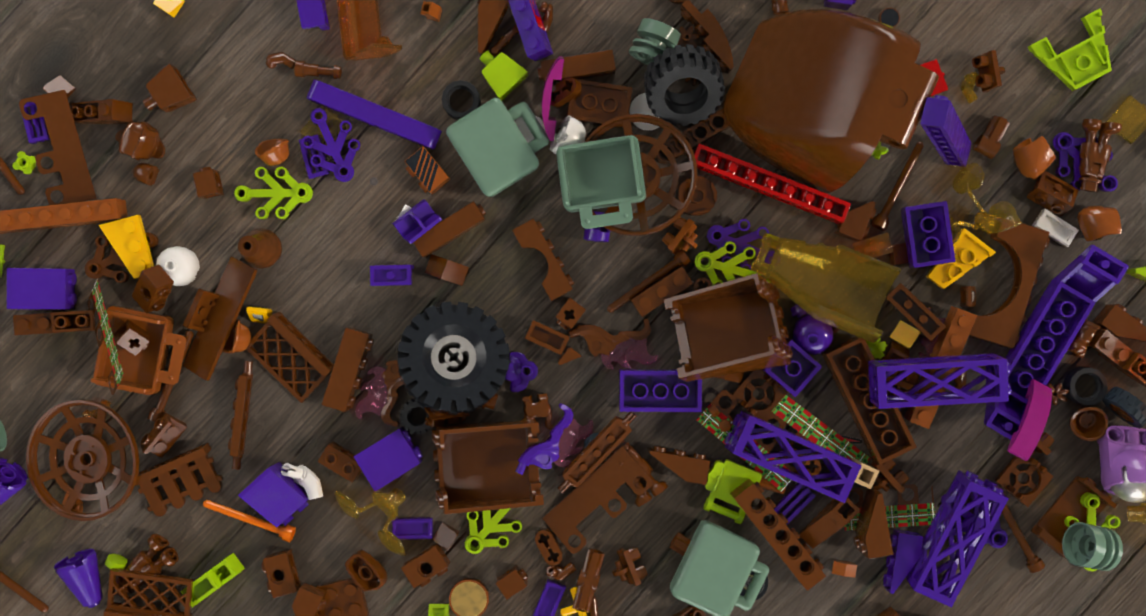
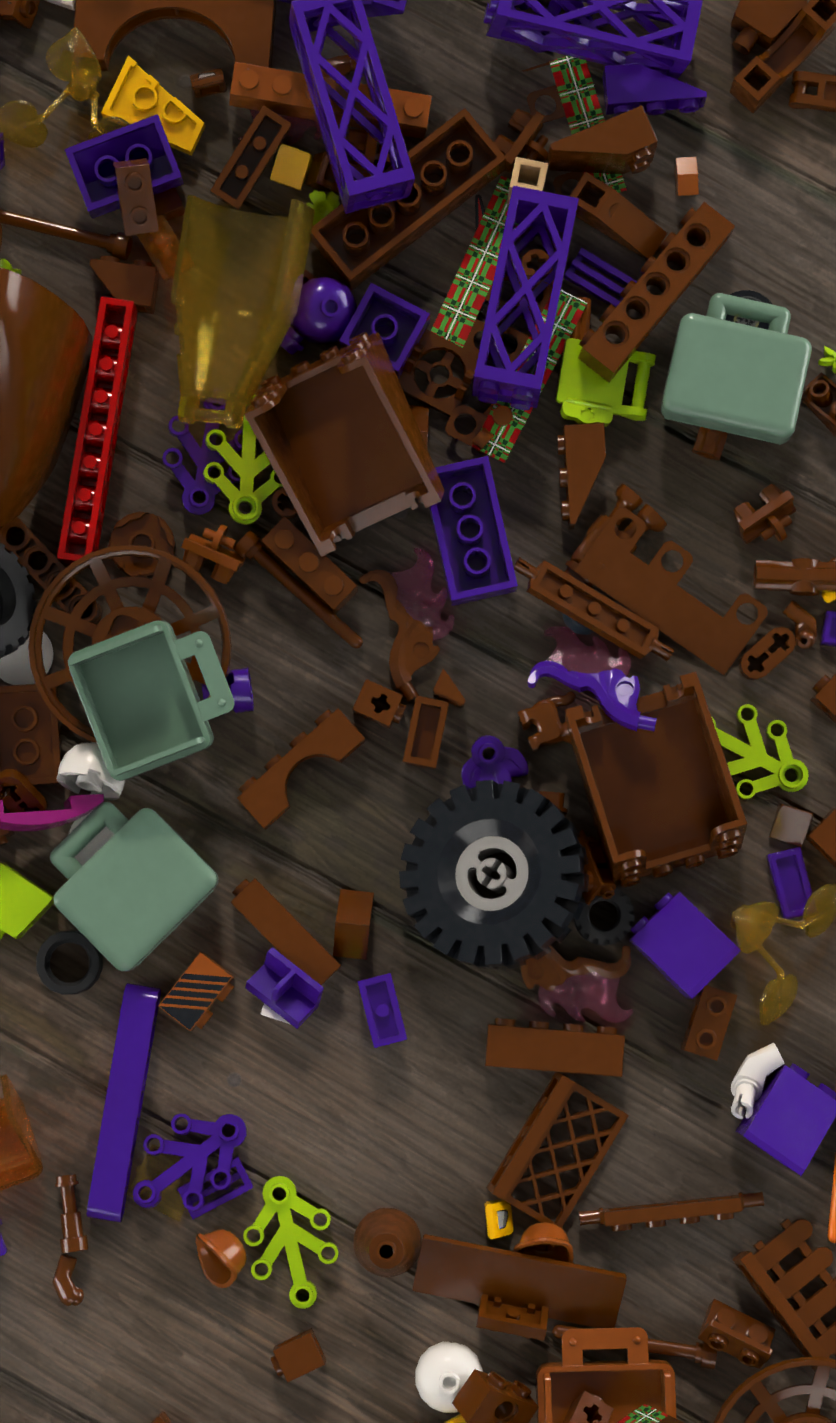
camera: 105 degrees left, 5 degrees down
(907, 237) = (136, 196): none -> reddish brown brick

